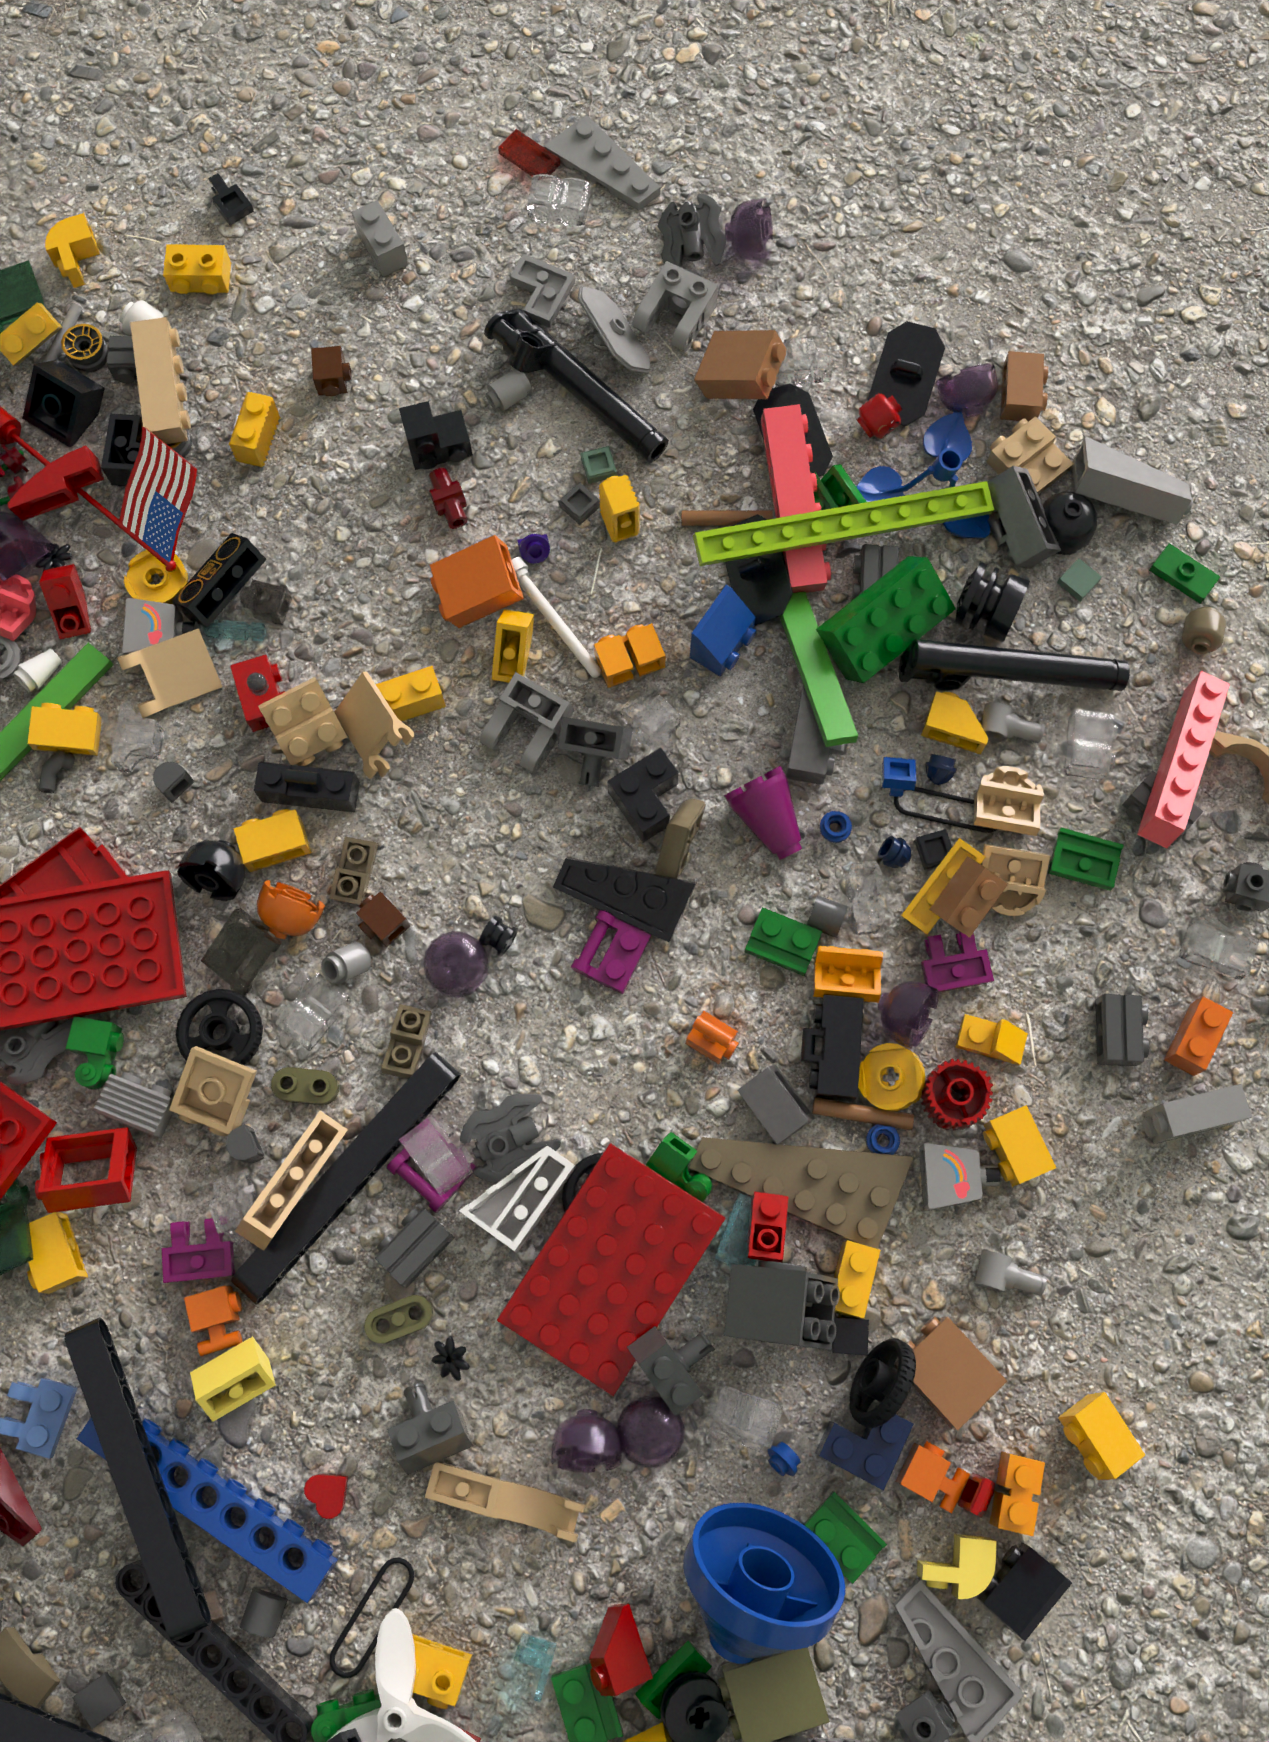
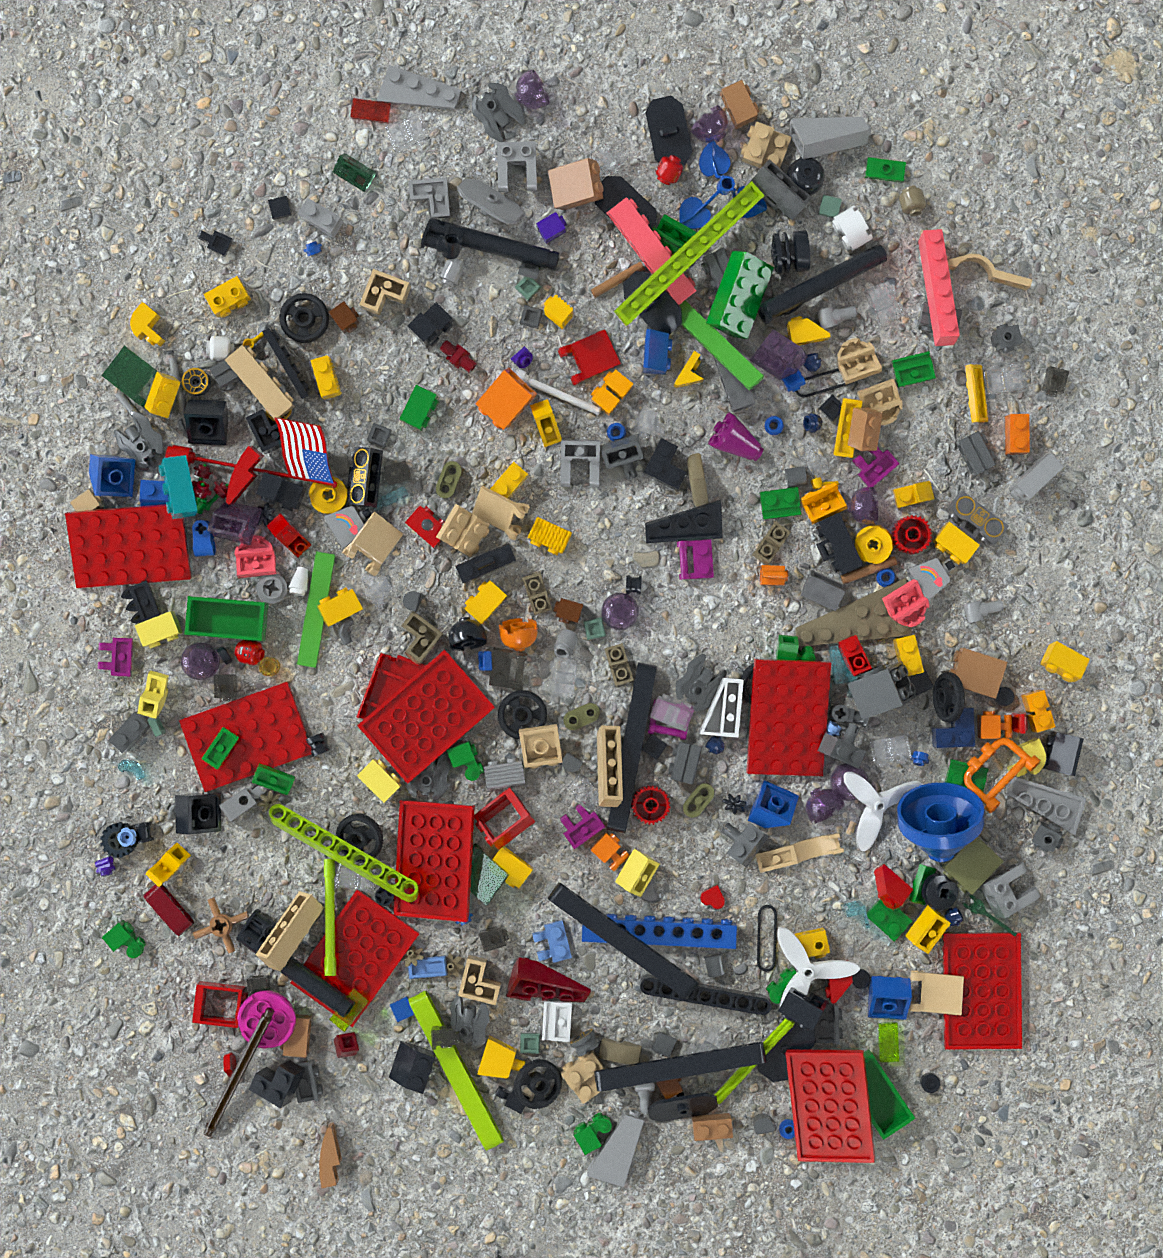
camera: 30 degrees left, 15 degrees up
(88, 530) = (276, 489): none -> black brick
(154, 842) = (425, 635): none -> dark tan brick
(187, 339) = (250, 342): none -> yellow hand
(215, 367) = (282, 355): none -> black wing
(216, 922) = (485, 660): none -> blue tile
(272, 334) = (319, 310): none -> black wheel
(277, 542) = (379, 435): none -> dark grey tile
(301, 1283) = (657, 812): none -> red brick
(329, 647) = (447, 479): none -> olive plate
(338, 205) = (279, 207): none -> black tile
(345, 270) = (312, 248): none -> blue plate
(352, 533) = (419, 408): none -> green brick
(383, 1196) = (654, 746): none -> black tile
(400, 358) = (382, 287): none -> tan brick
(404, 968) = (594, 628): none -> sand green tile
(422, 800) = (549, 535): none -> yellow brick
(460, 213) = (354, 172): none -> clear green slope
(476, 1247) = (715, 745): none -> dark blue plate
(507, 1399) = (773, 806): none -> blue slope
(604, 704) = (620, 427): none -> blue plate
(612, 441) = (529, 270): none -> dark grey tile
(630, 595) = (592, 355): none -> red flag
(671, 1495) = (875, 803): none -> white piece
(672, 1328) = (833, 728): none -> light blue plate
(676, 405) = (551, 227): none -> dark purple brick
(709, 1322) = (849, 715): none -> dark grey connector
(737, 991) = (771, 543): none -> dark tan slope
(747, 690) = (686, 376): none -> yellow slope
(855, 940) = (817, 483): none -> yellow hand
(893, 1196) = (907, 604): none -> coral slope
(898, 729) = (779, 356): none -> clear purple slope
(901, 1513) = (988, 751): none -> orange bar
(973, 1437) = (1005, 696): none -> black tile
(1074, 1127) = (984, 523): none -> flat silver piece
(1096, 618) = (852, 228): none -> white brick
(1164, 943) = (976, 393): none -> yellow plate

